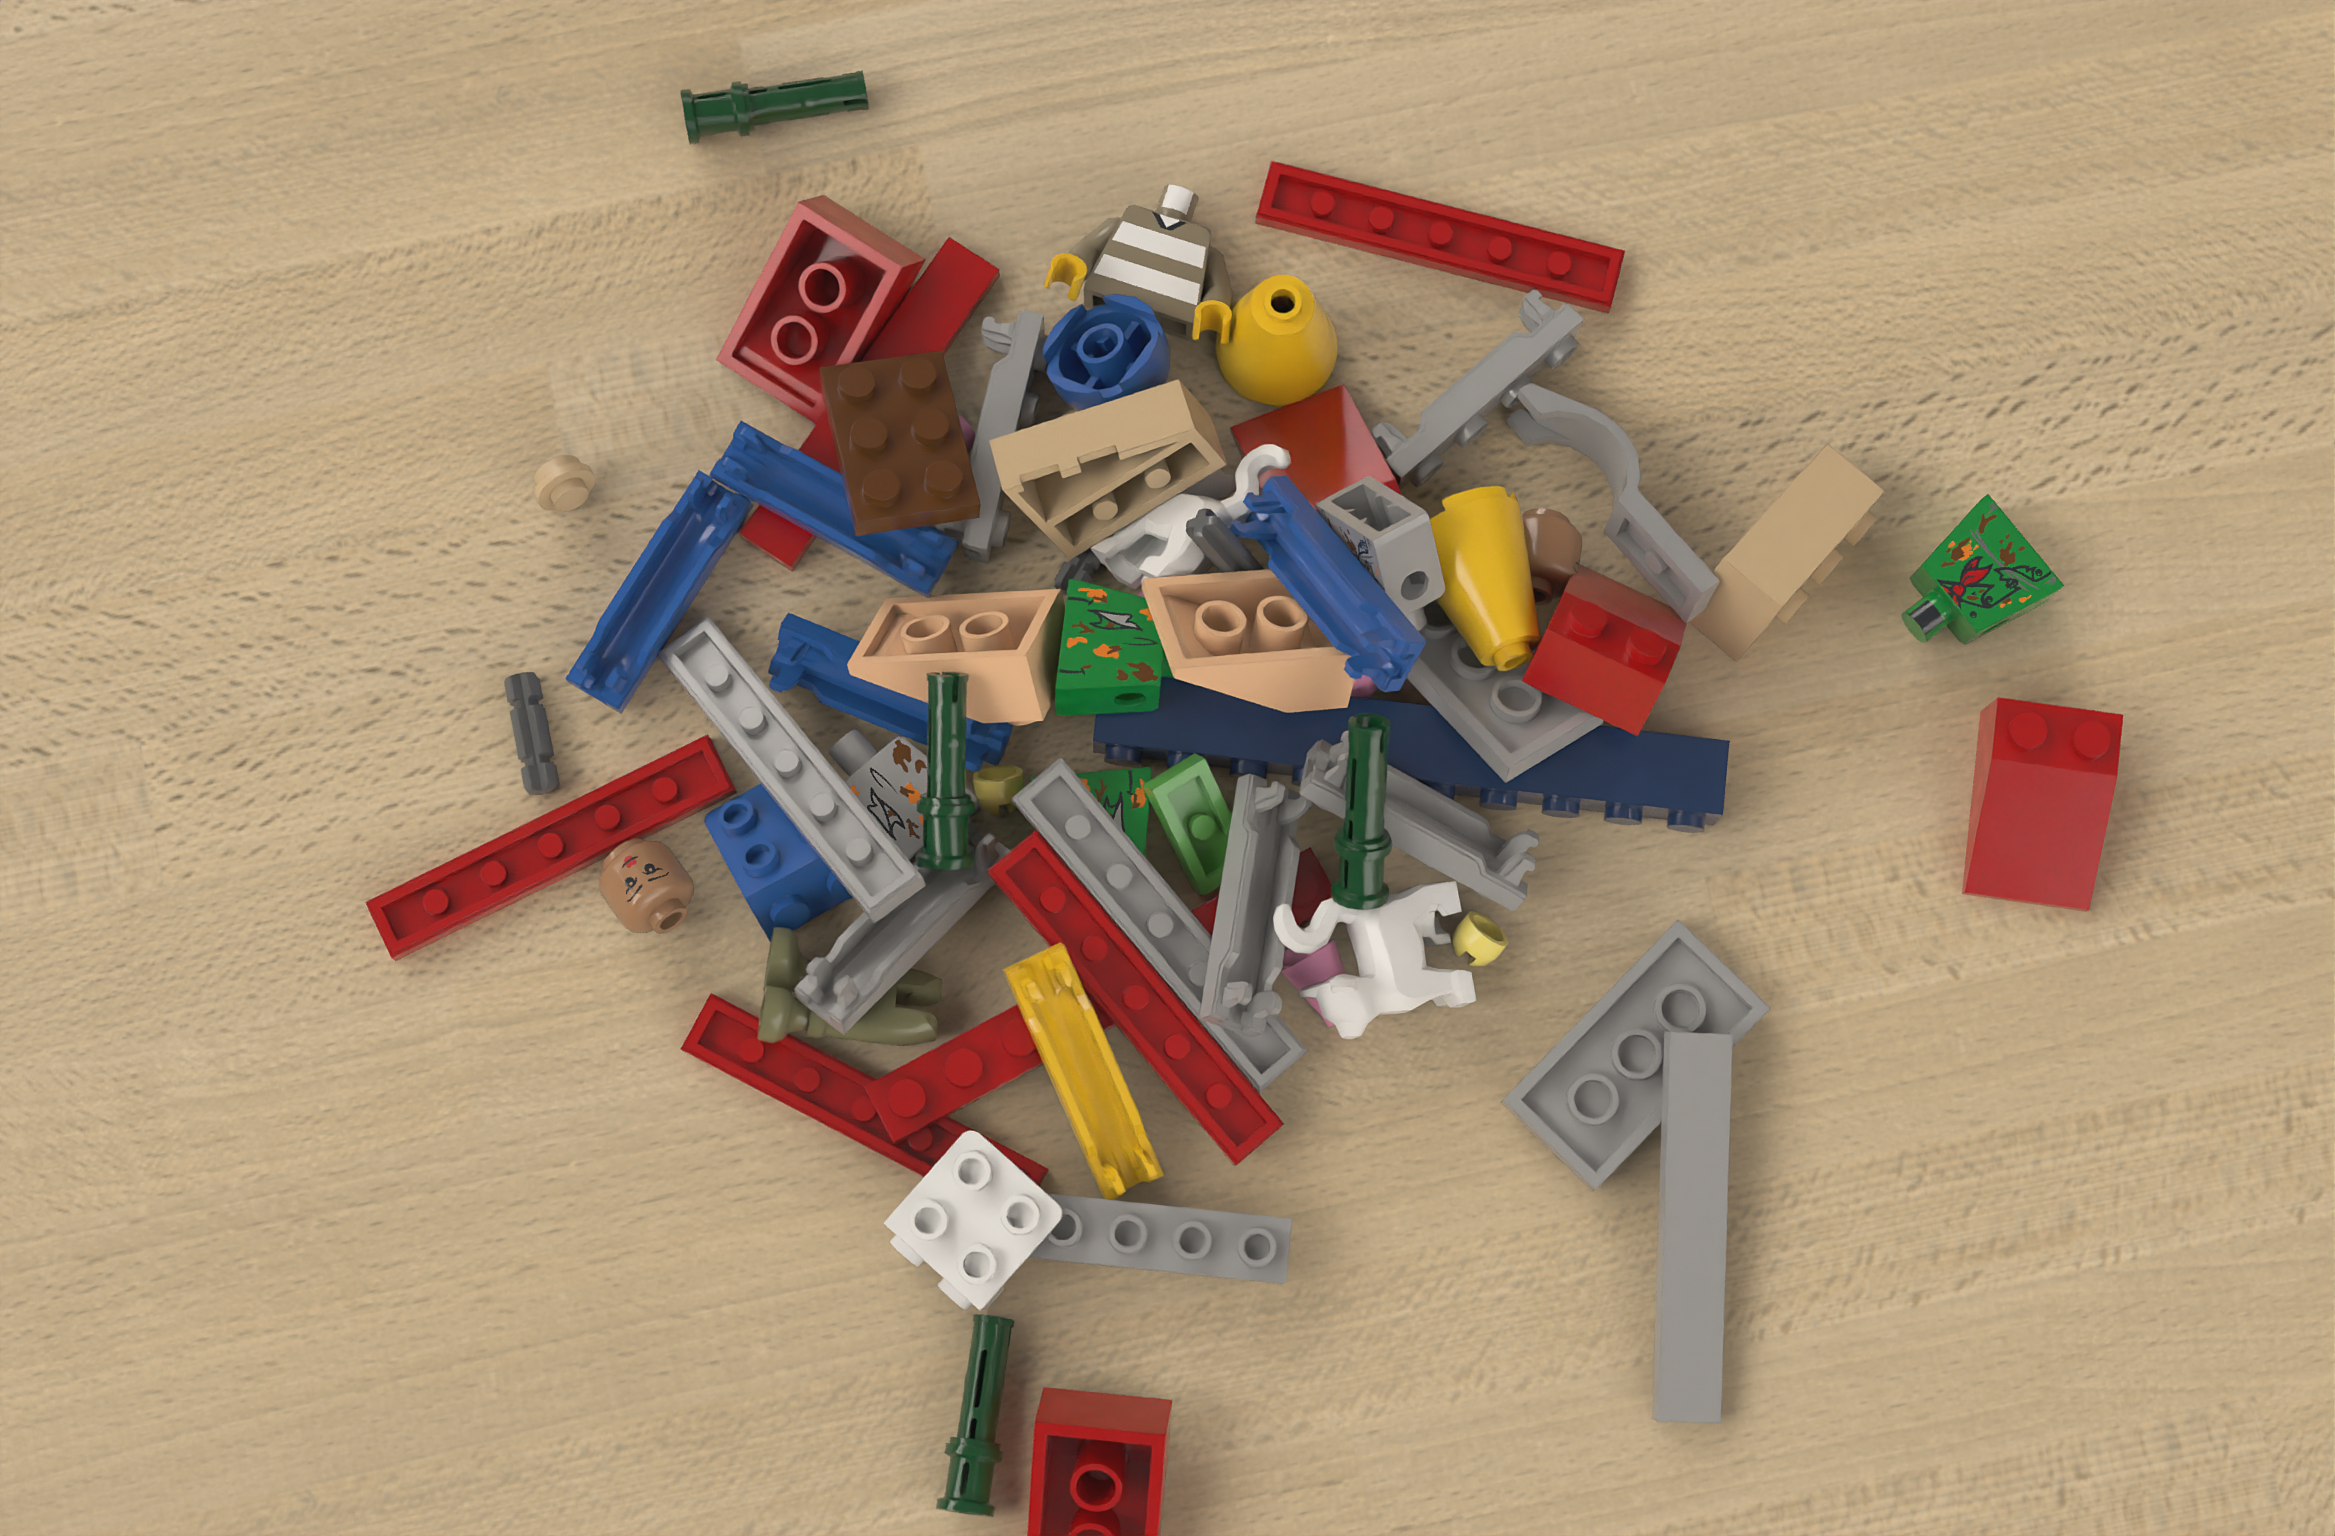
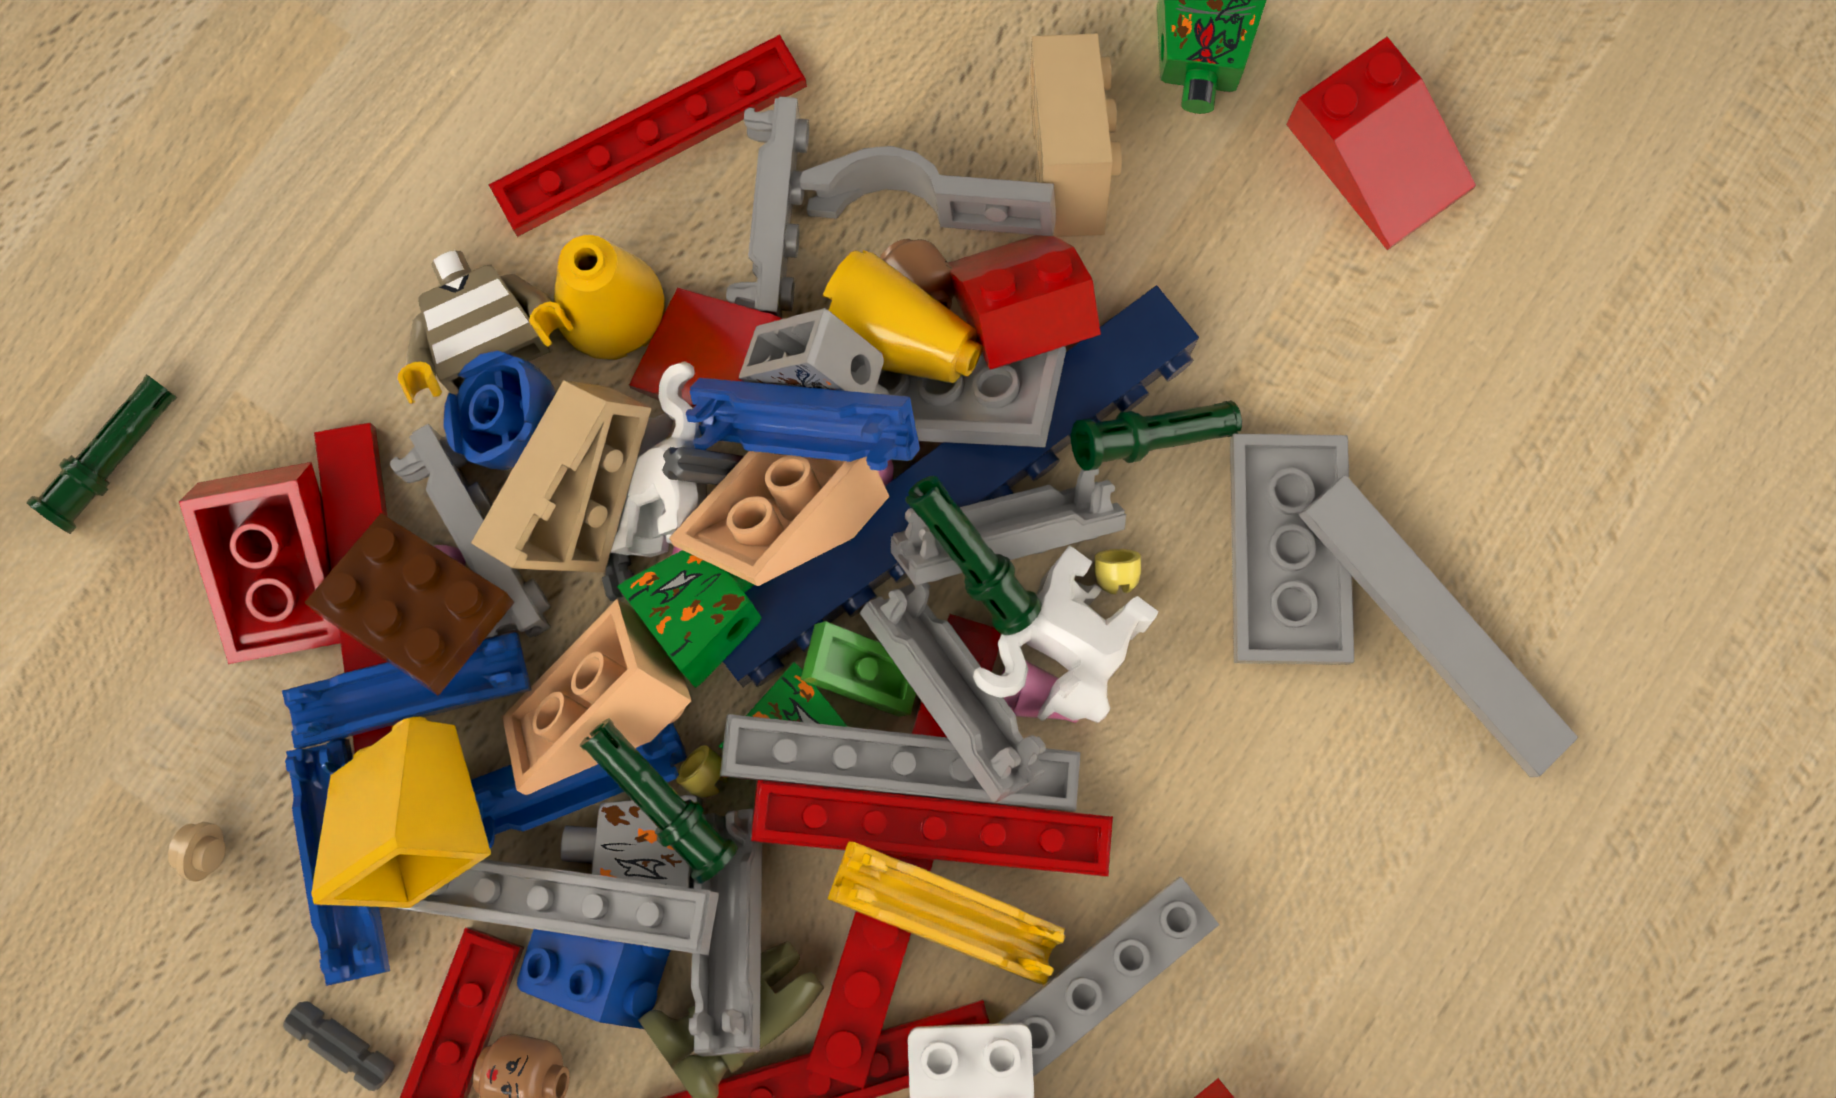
camera: 40 degrees left, 0 degrees up
(739, 603) = (399, 820): none -> yellow slope
(1591, 844) = (1133, 436): none -> dark green pin

